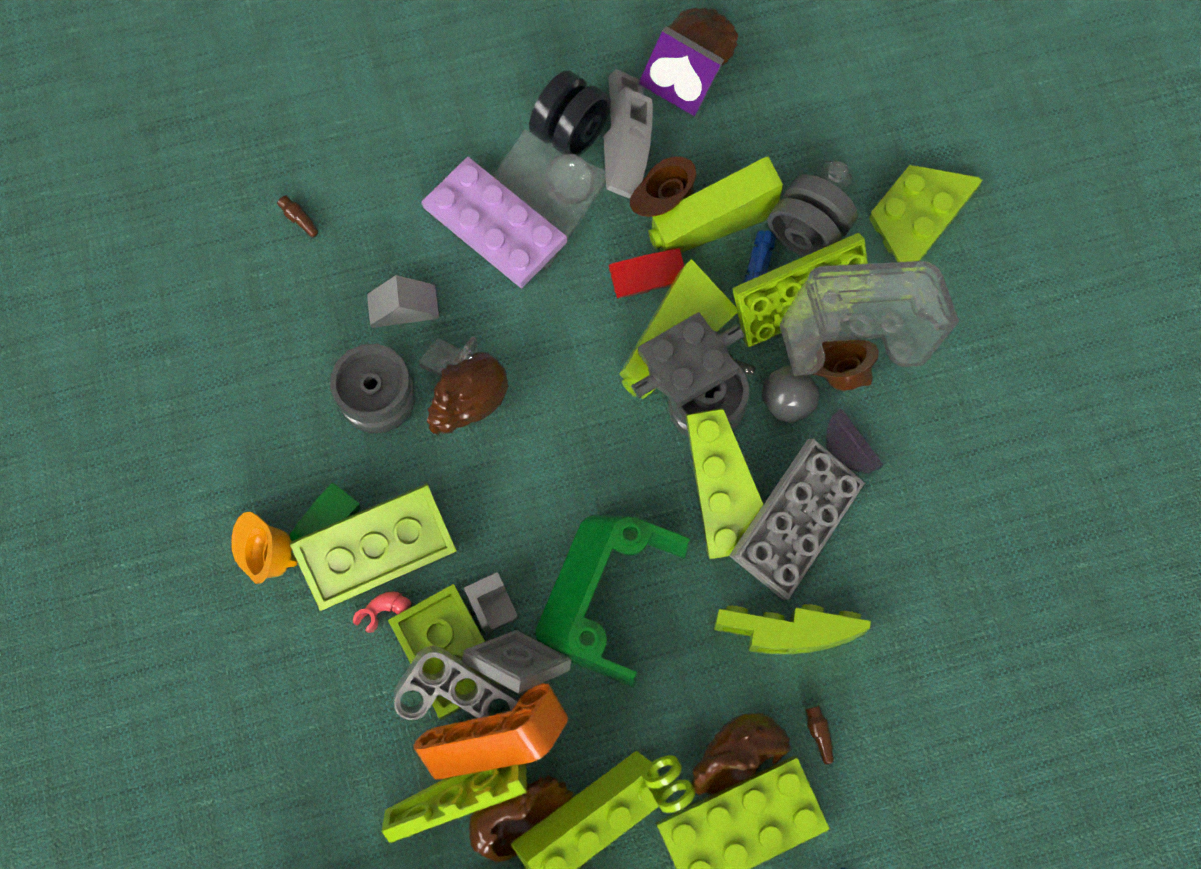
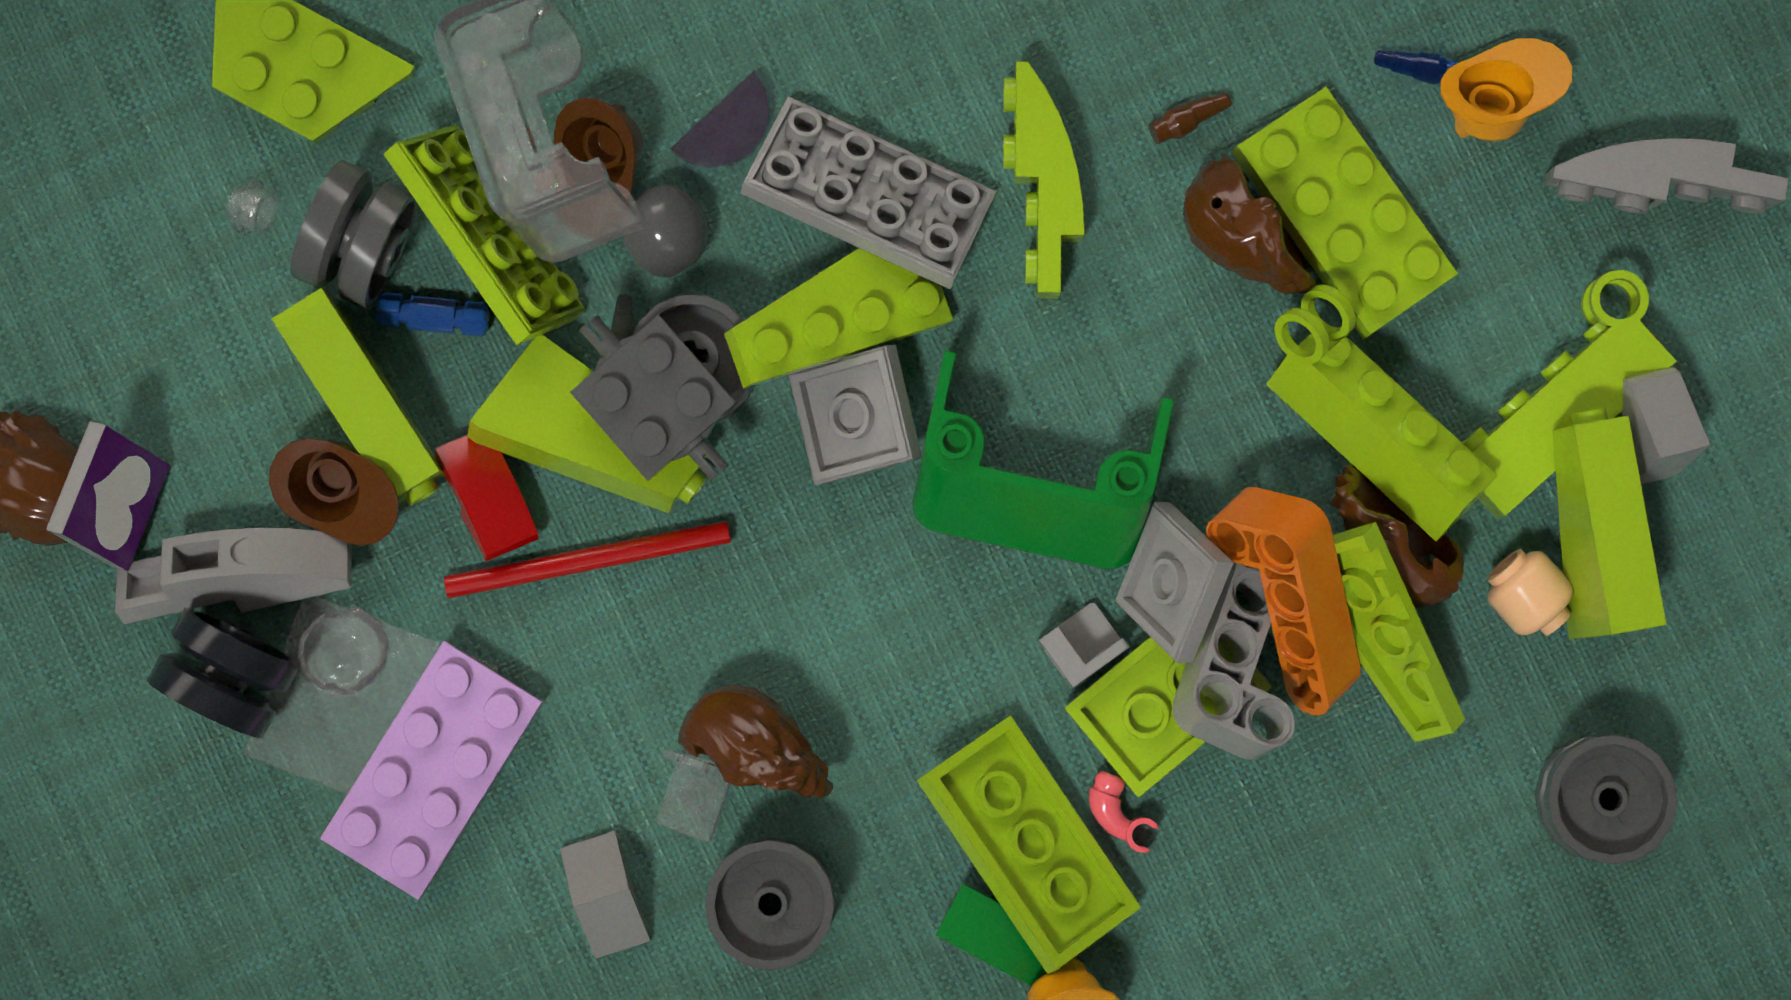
camera: 105 degrees left, 15 degrees up
(600, 327) = (587, 559): none -> red piece
(659, 487) = (855, 415): none -> light grey tile

